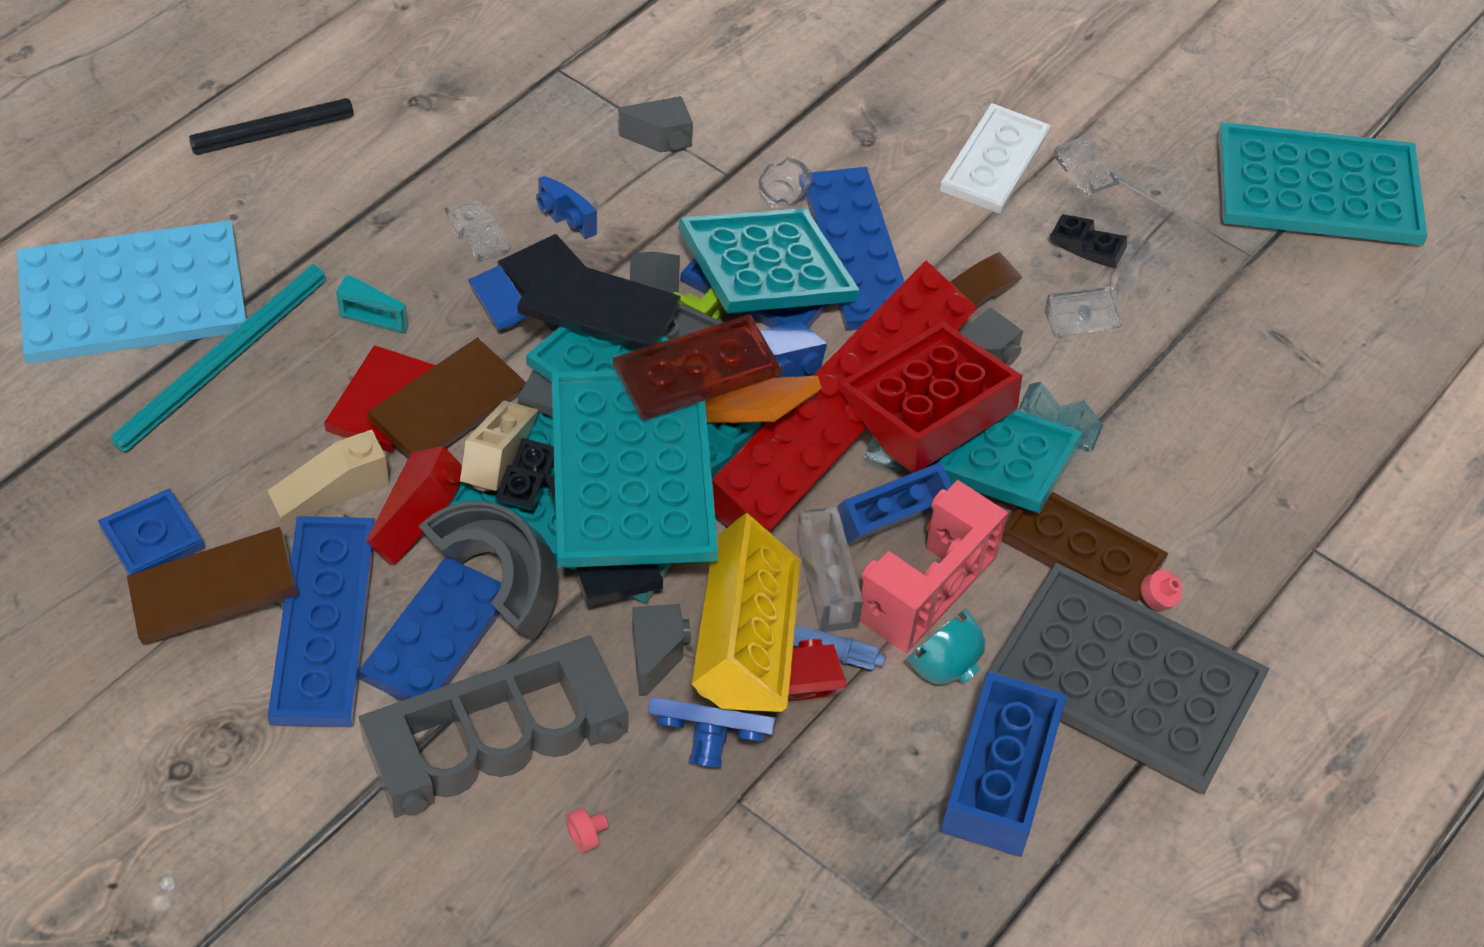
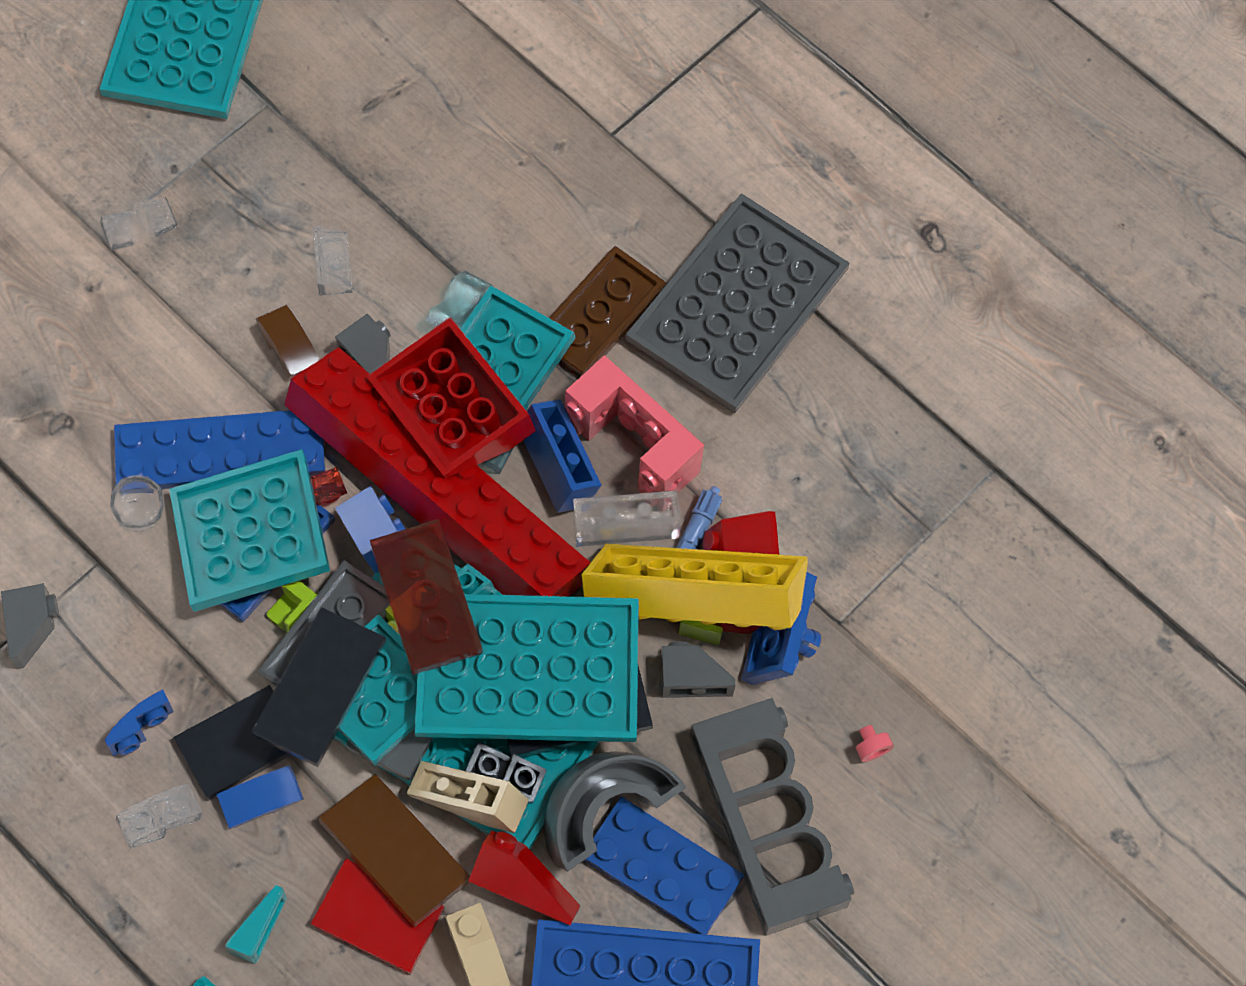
camera: 85 degrees left, 15 degrees up
(656, 270) = (244, 643): dark grey panel -> none
(762, 401) = (470, 536): orange tile -> none
(828, 323) = (328, 486): none -> clear red plate
(951, 651) = (718, 429): teal cylinder -> none
(995, 158) = (111, 303): white tile -> none
(1004, 764) = (827, 407): blue brick -> none
(1082, 239) = (239, 239): black slope -> none
(1161, 590) = (655, 257): coral tile -> none

